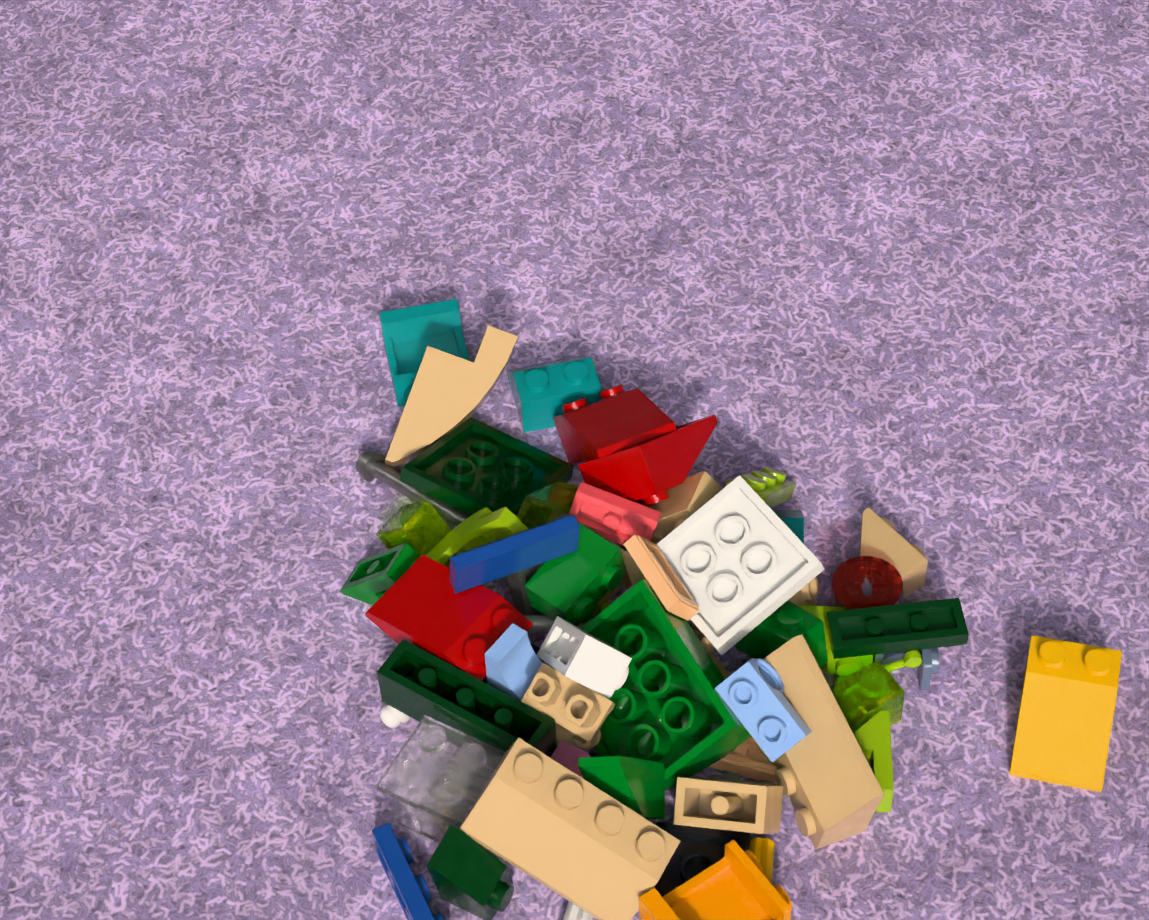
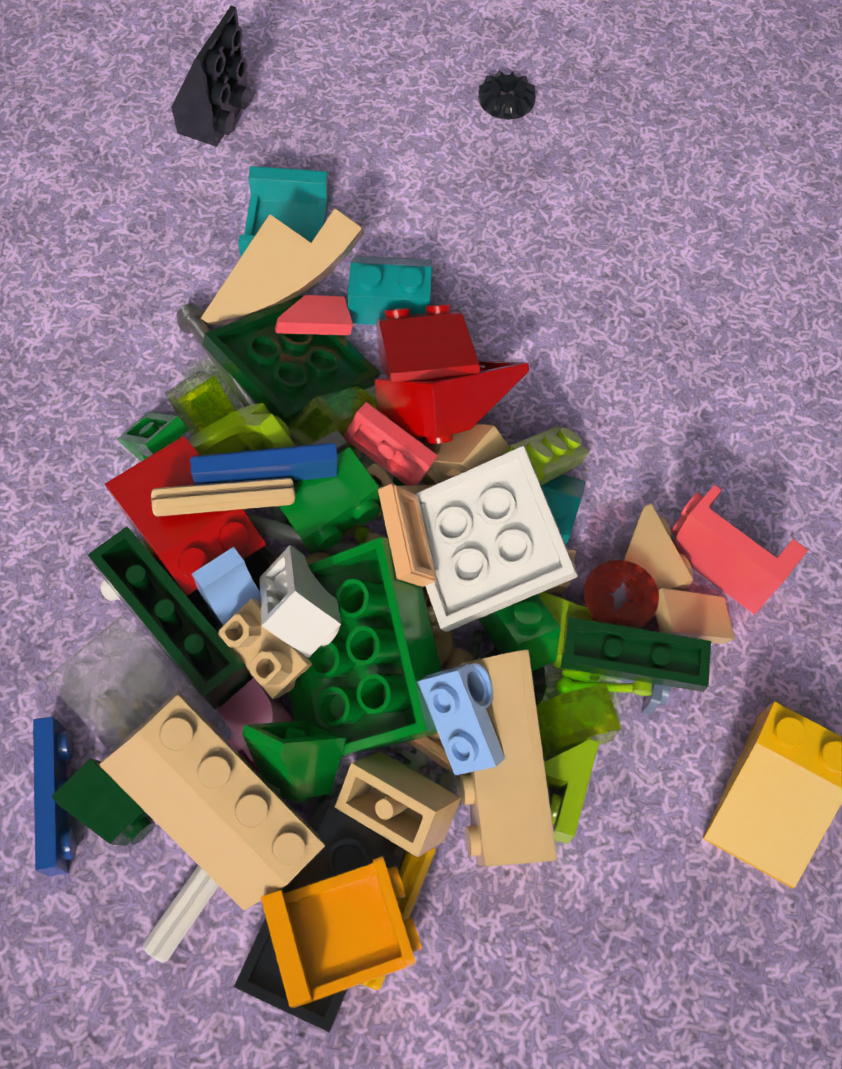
camera: 10 degrees right, 15 degrees up
(314, 248) = (214, 85): none -> black slope
(484, 588) = (222, 496): none -> tan axle
(497, 429) = (316, 316): none -> coral tile
(605, 196) = (507, 105): none -> black gear
(936, 585) = (694, 616): none -> tan tile
(954, 531) = (729, 556): none -> coral panel

